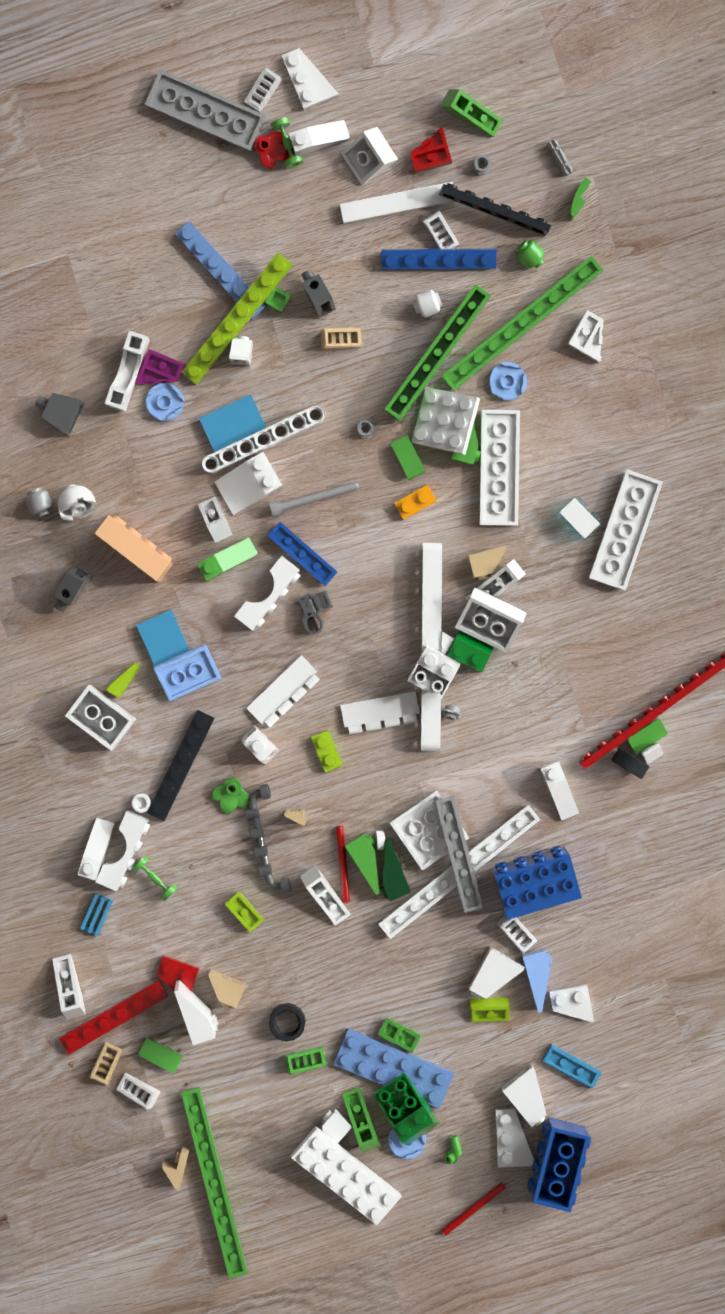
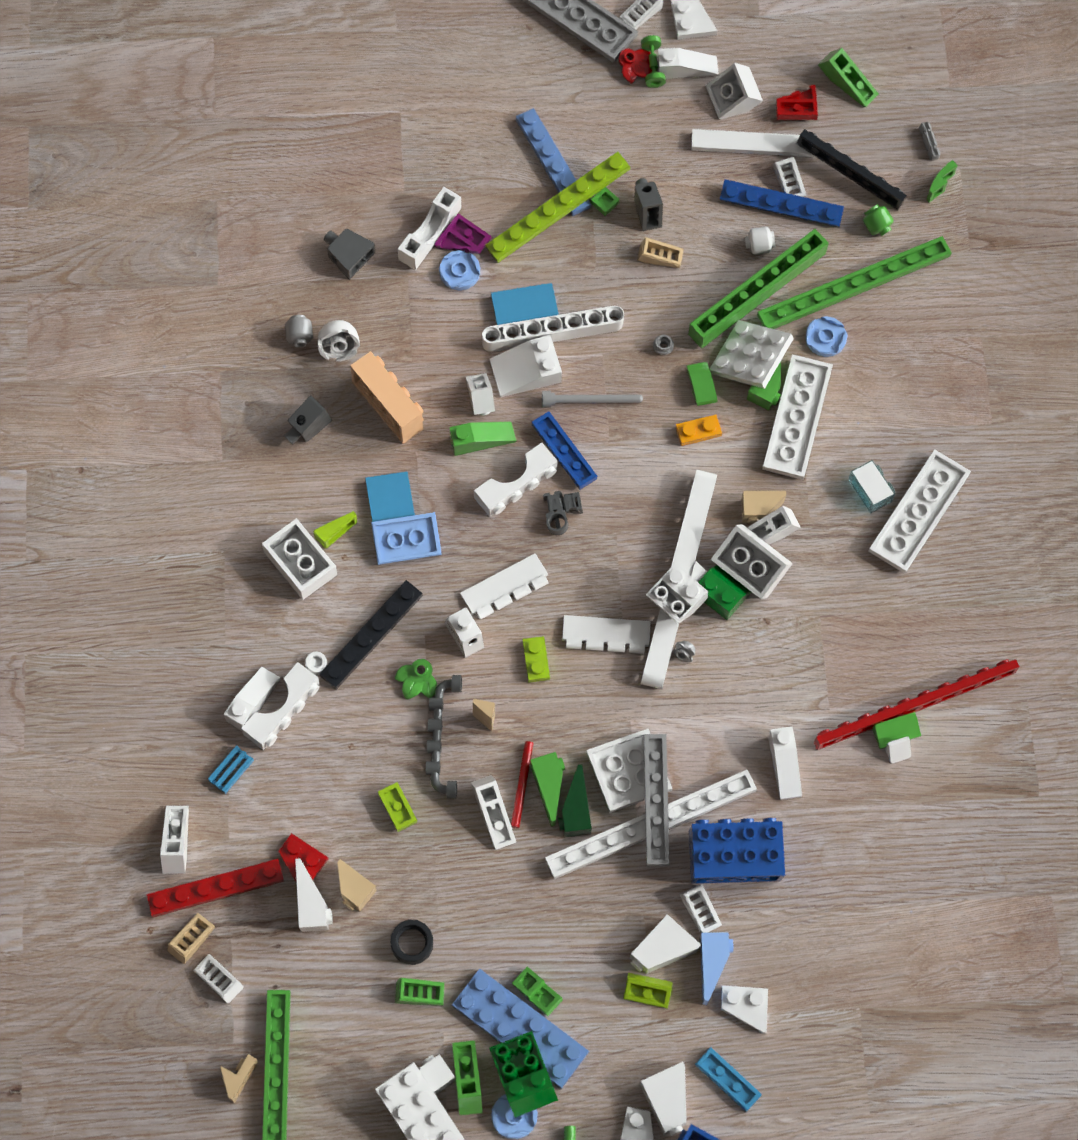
camera: 10 degrees right, 20 degrees down
(154, 878) = (319, 762): bright green wheel -> none
(160, 1055) = (256, 943): bright green slope -> none
(241, 351) = (553, 239): white slope -> none
(380, 840) = (570, 767): white tile -> none
(481, 158) = (847, 123): light grey plate -> none
(588, 336) = (921, 312): white wing -> none
(630, 763) = (872, 750): black tyre -> none

